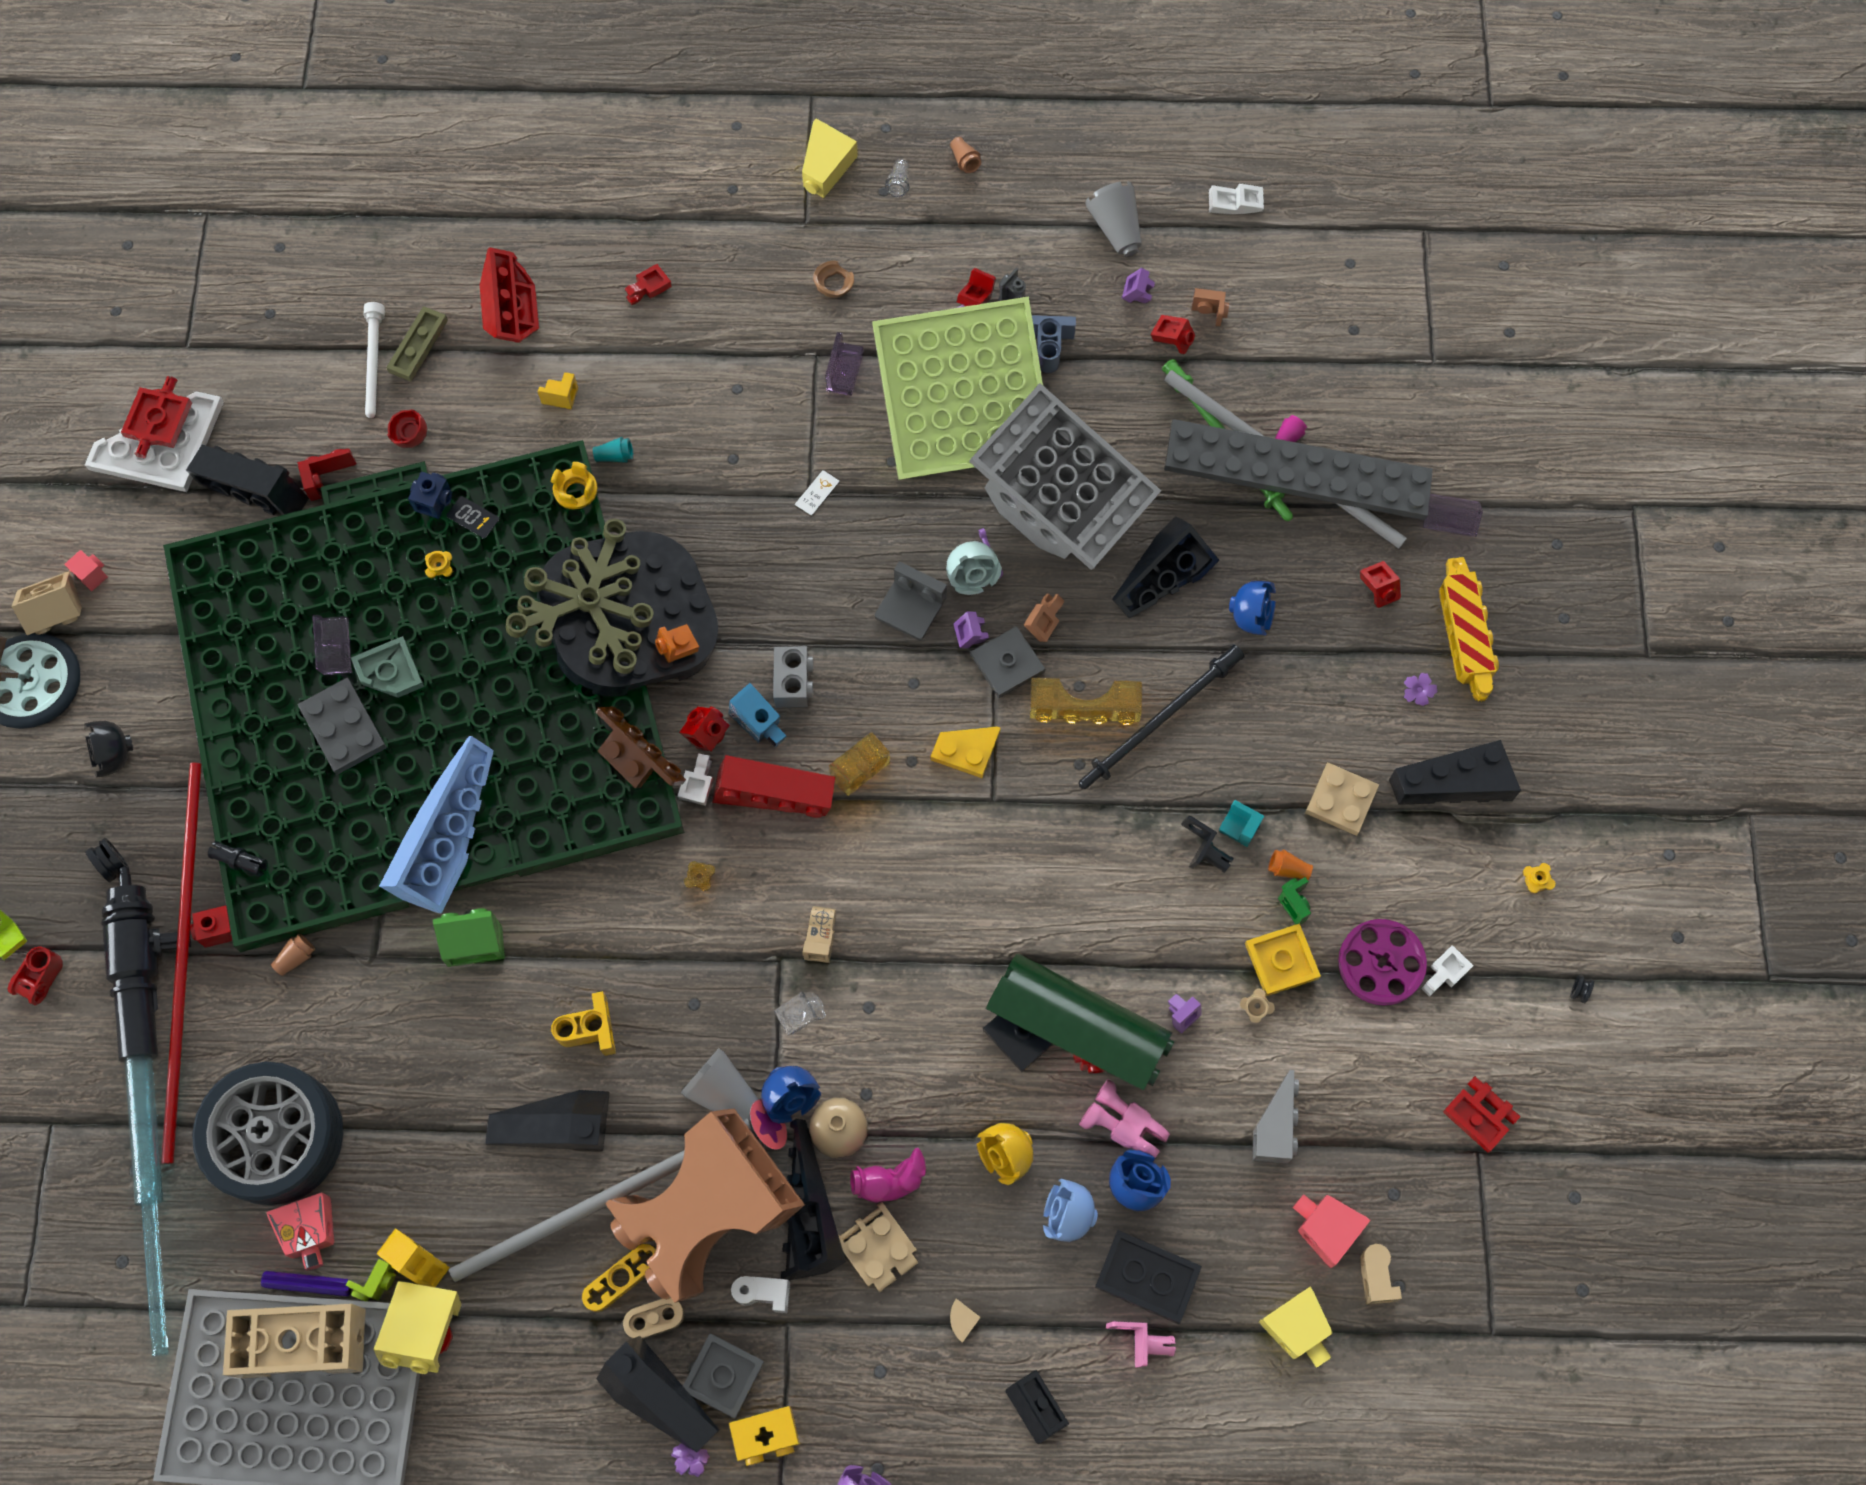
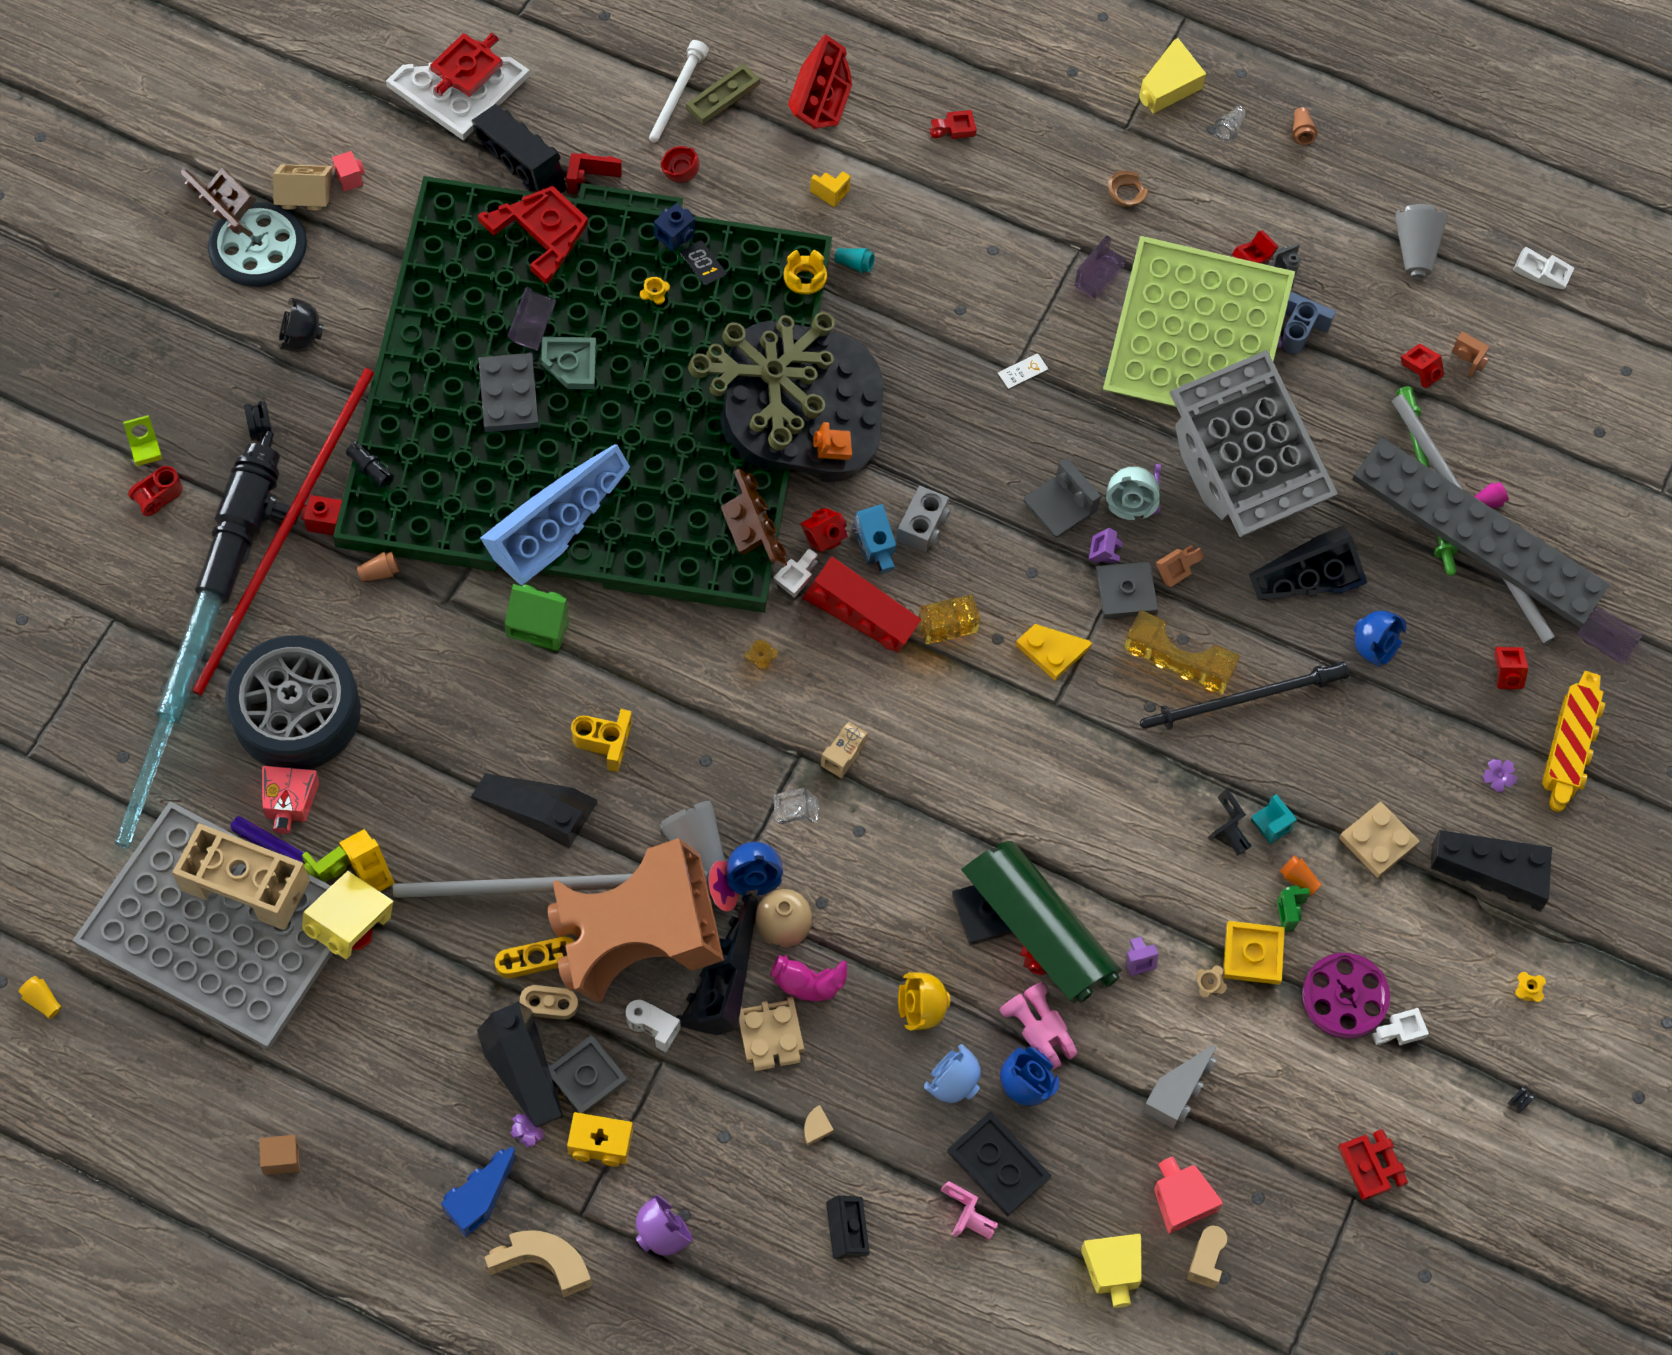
camera: 20 degrees right, 5 degrees down
(306, 538) = (549, 220): none -> red wing
(1136, 286) = (1408, 308): medium lavender tile -> none

